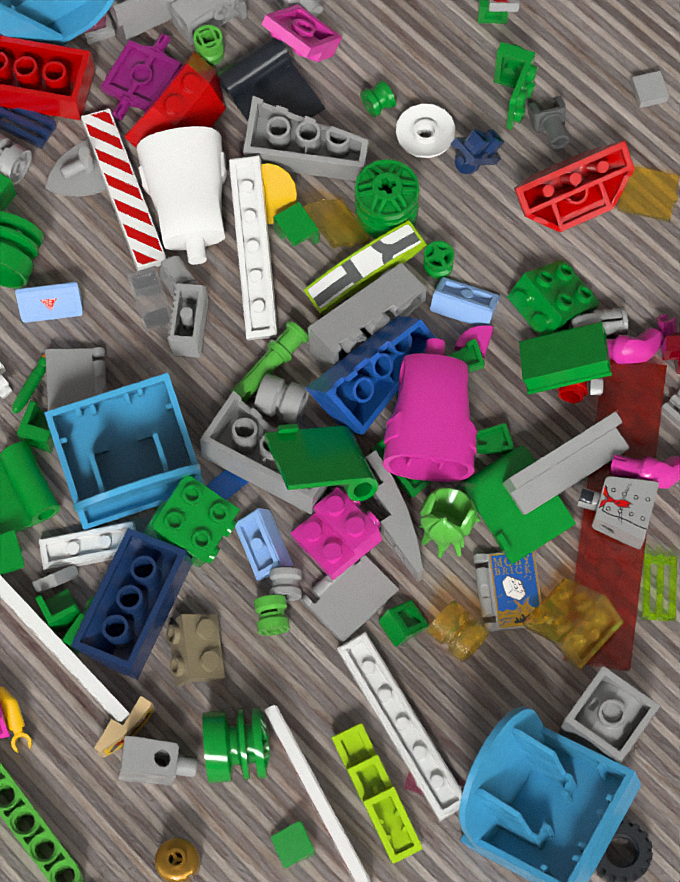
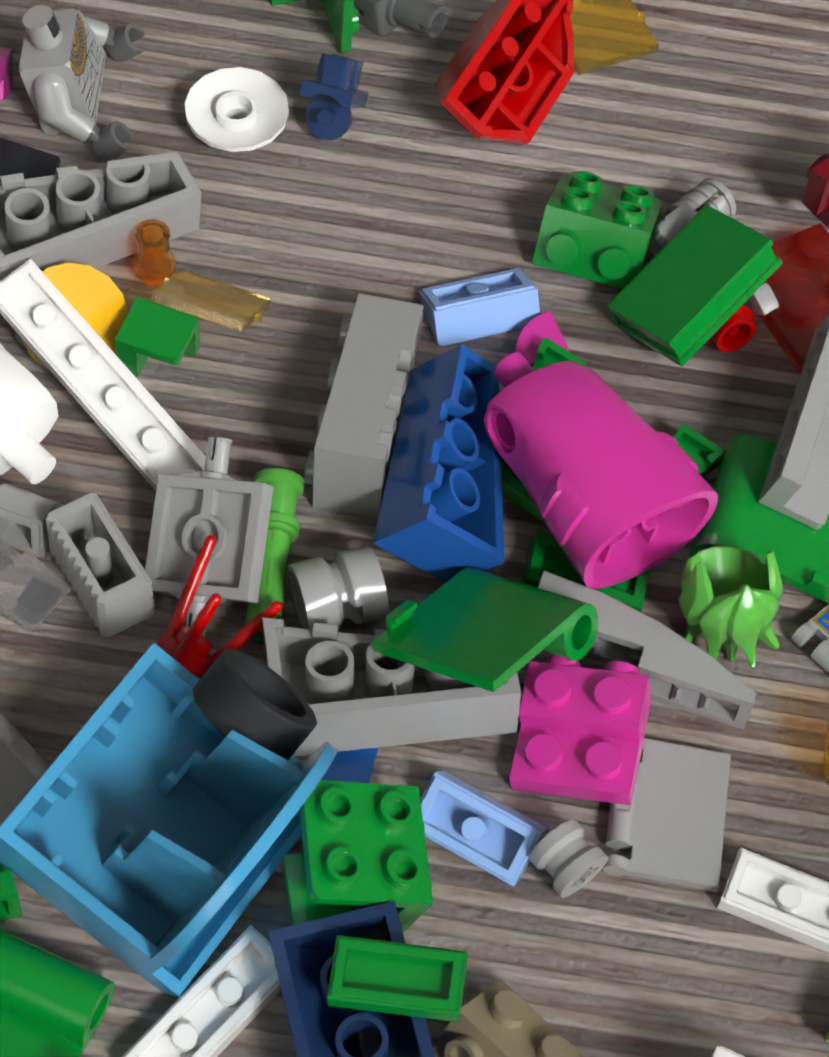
camera: 45 degrees left, 10 degrees down
(160, 583) = (397, 978): none -> green tile
(172, 434) = (255, 702): none -> black tyre
(197, 382) = (188, 644): none -> red plant
(241, 338) = (206, 505): none -> light grey plate
(271, 615) = (586, 918): bright green wheel -> none
(328, 185) = (153, 253): none -> clear orange pin
(357, 62) = (64, 73): none -> light grey torso
(364, 267) = (303, 338): slope -> none
(378, 98) = (132, 102): green wheel -> none
(386, 197) = (263, 223): green wheel -> none
(403, 622) = (777, 800): green slope -> none
(439, 252) = (391, 255): green wheel -> none
(642, 347) = (772, 202): dark pink arm -> none

